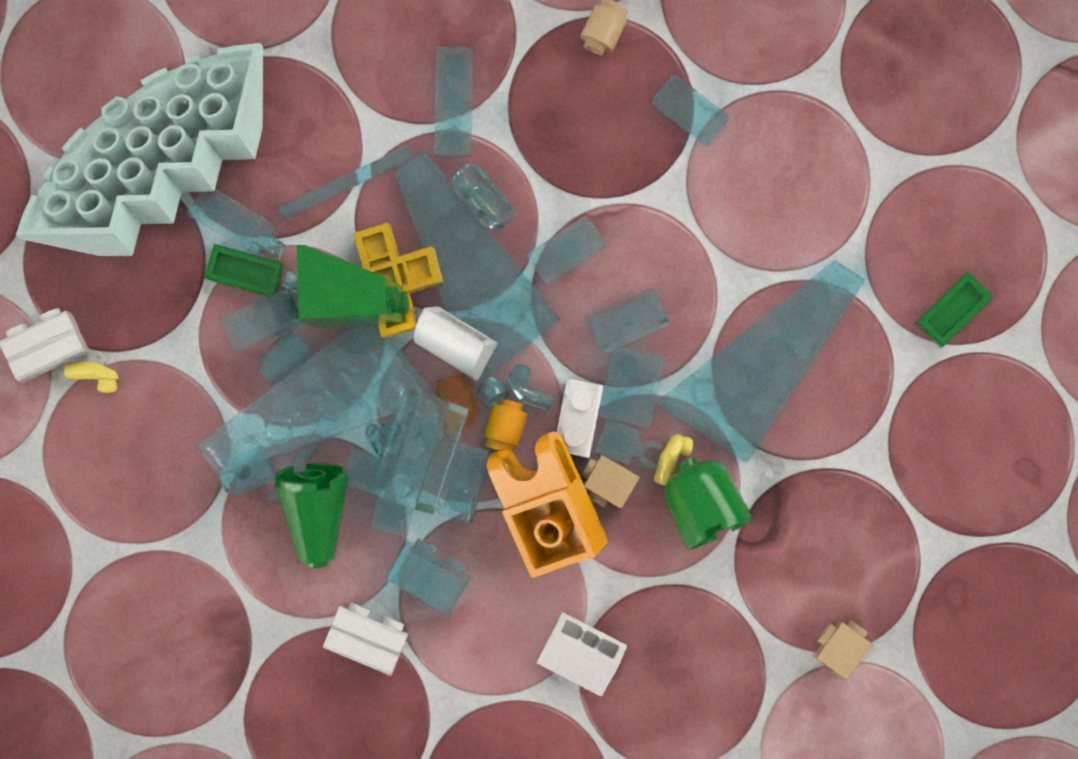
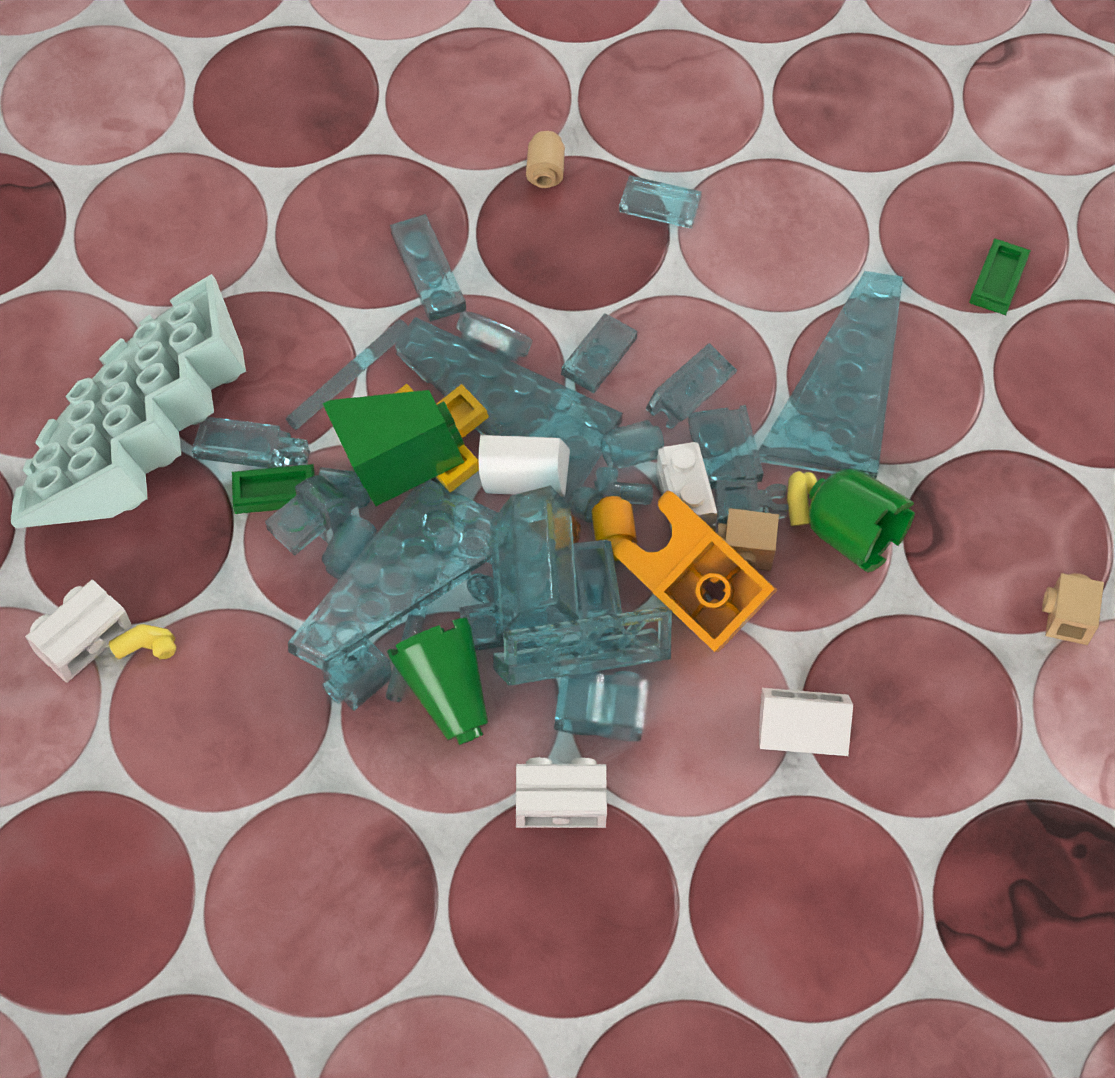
camera: 20 degrees left, 25 degrees down
(429, 537) = (589, 653): none -> clear light blue fence
(553, 355) = (631, 444): none -> clear light blue brick

